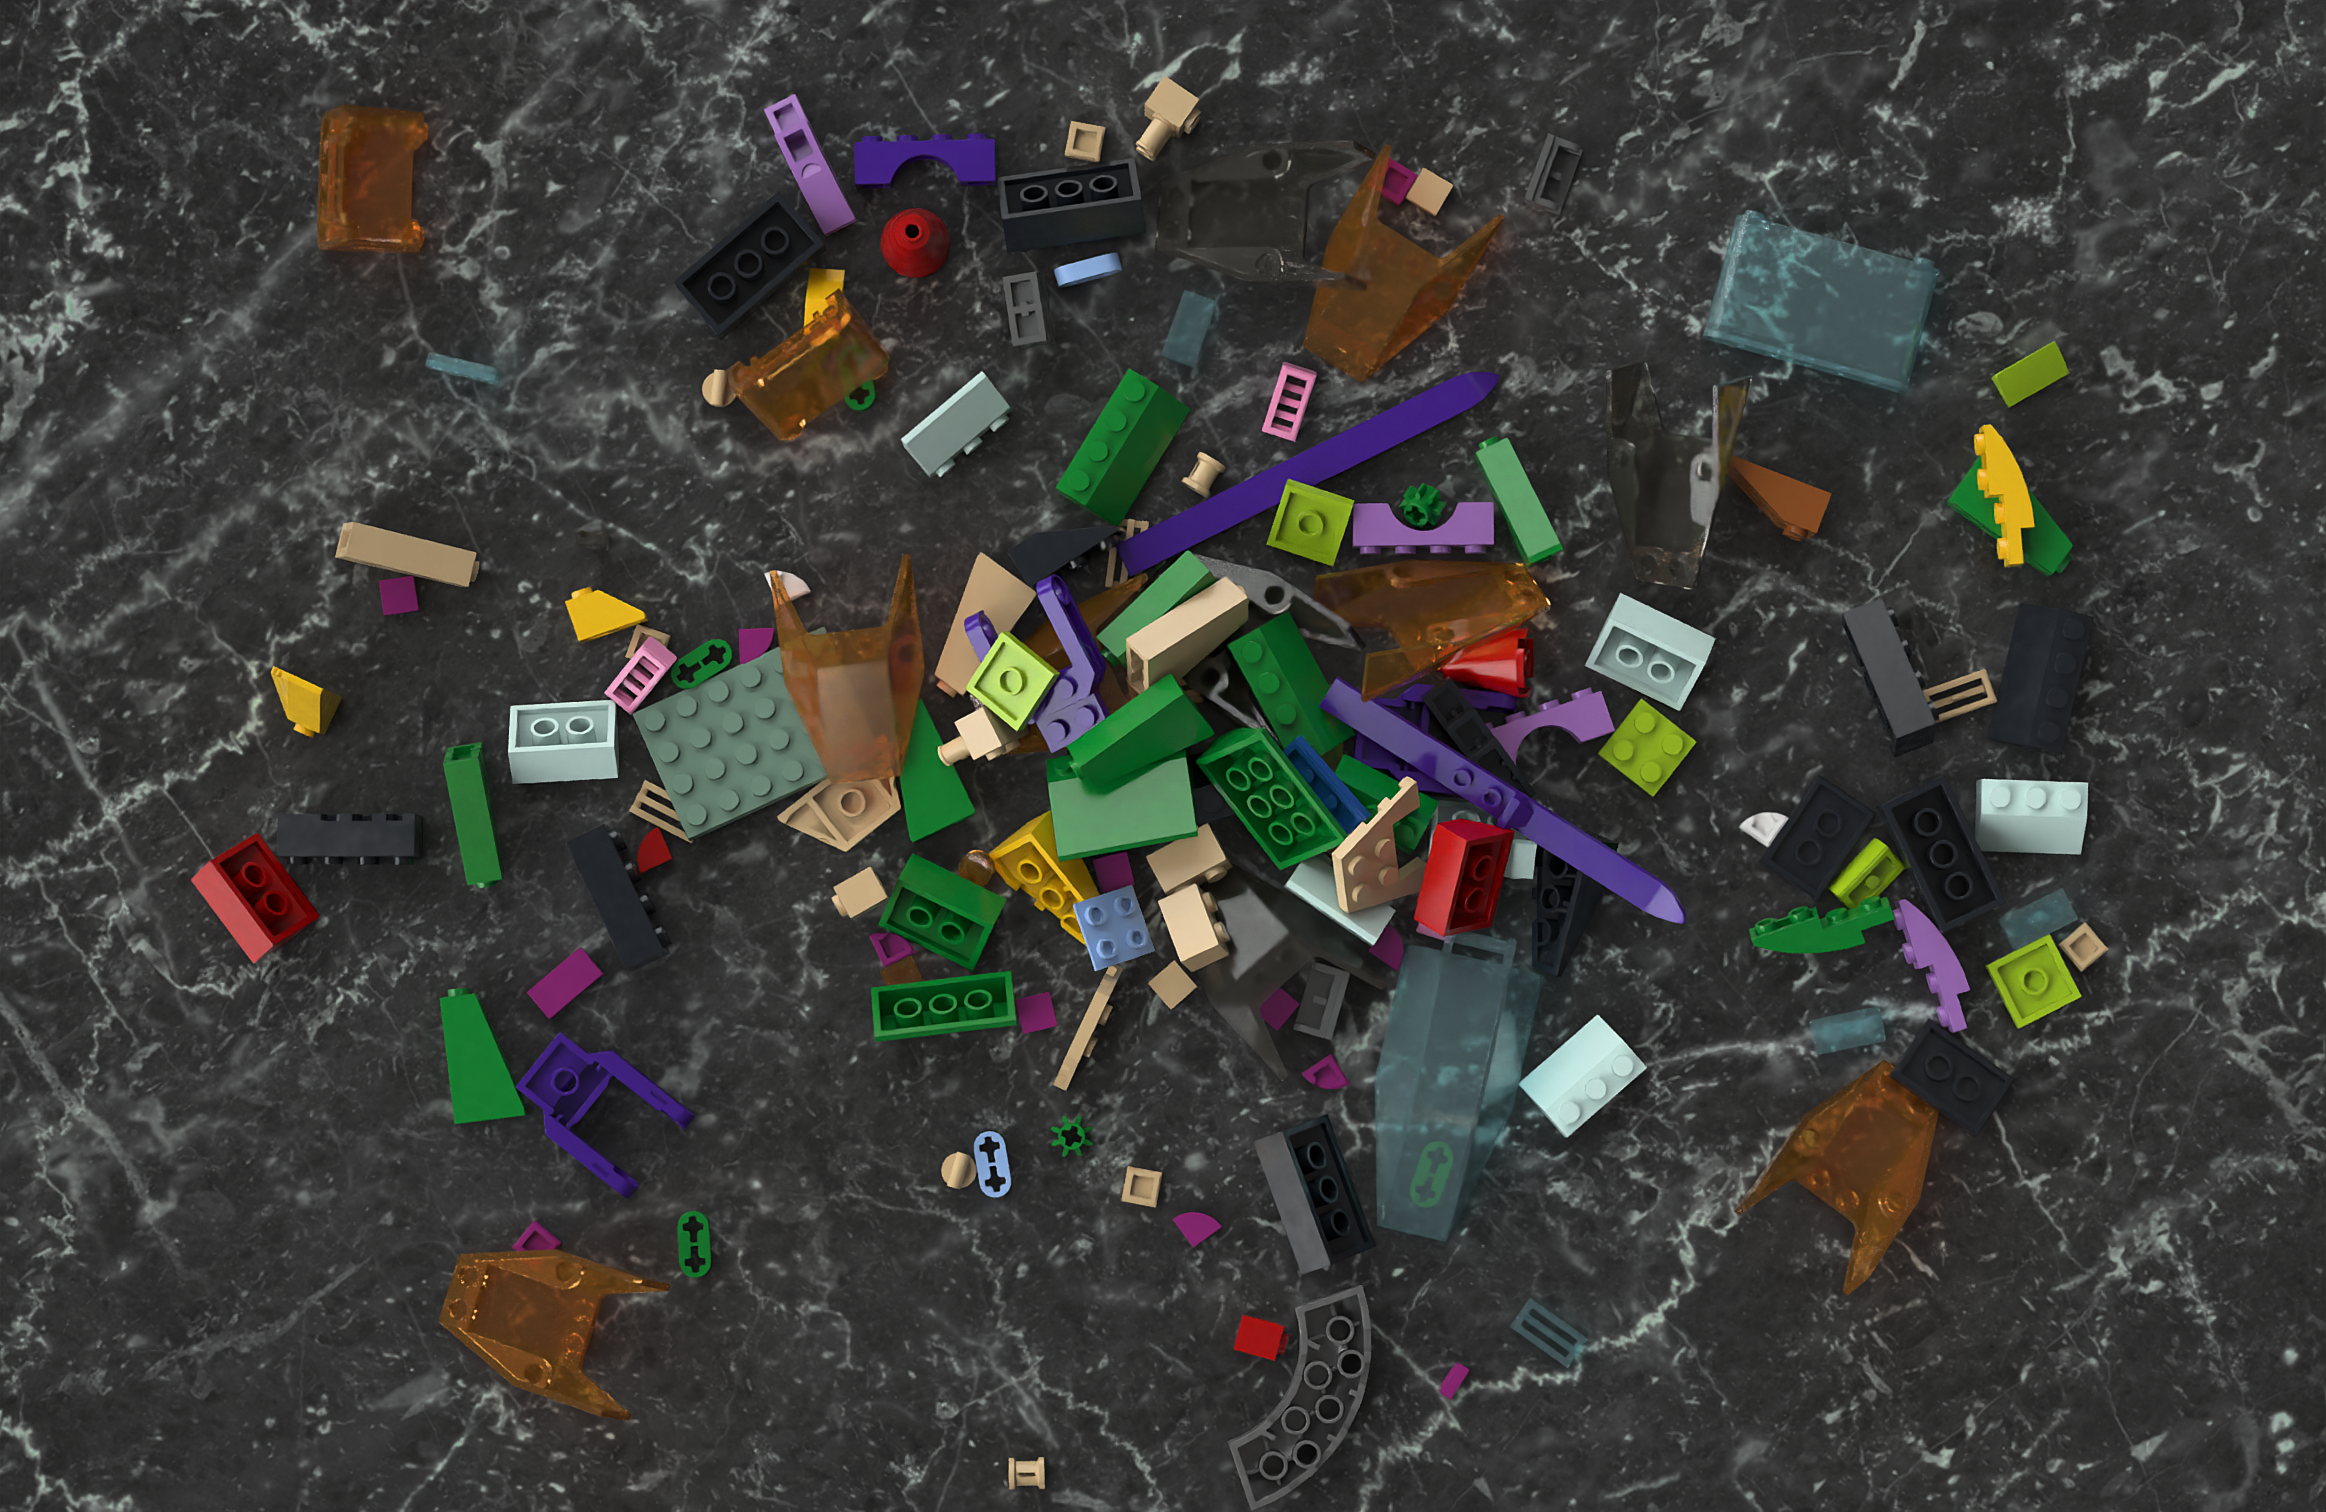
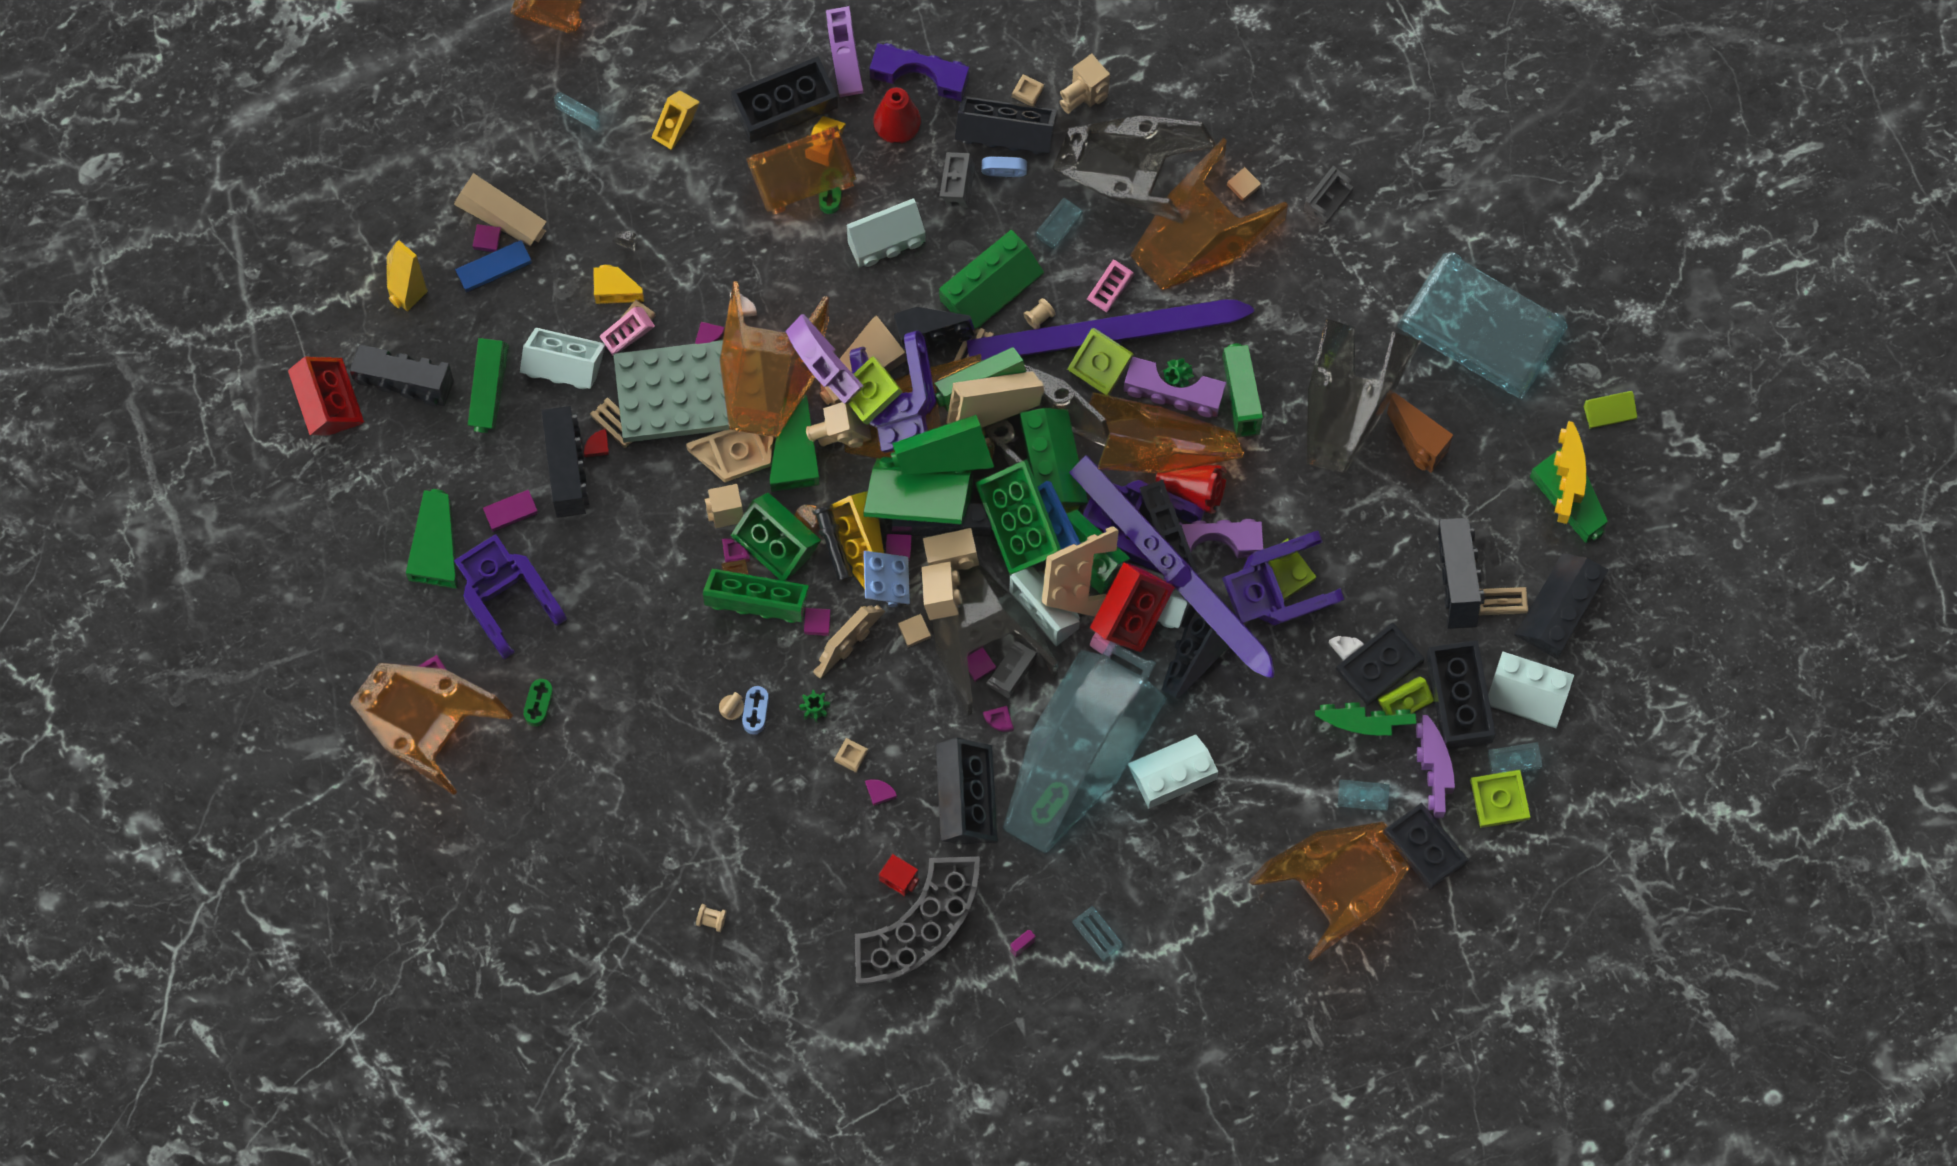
camera: 20 degrees right, 15 degrees down
(422, 634) = (493, 266): none -> blue tile
(604, 339) = (675, 119): none -> yellow slope
(696, 657) = (669, 336): green beam -> none
(717, 389) = (739, 171): tan plate -> none
(930, 661) = (821, 361): none -> medium lavender slope
(1014, 884) = (829, 530): none -> black pin
(1388, 947) = (1067, 649): magenta tile -> none
(1397, 182) = (1222, 171): magenta tile -> none
(1622, 793) = (1256, 590): none -> dark purple plate
(1650, 652) = (1301, 507): light aqua slope -> none
(2082, 947) = (1540, 788): tan tile -> none

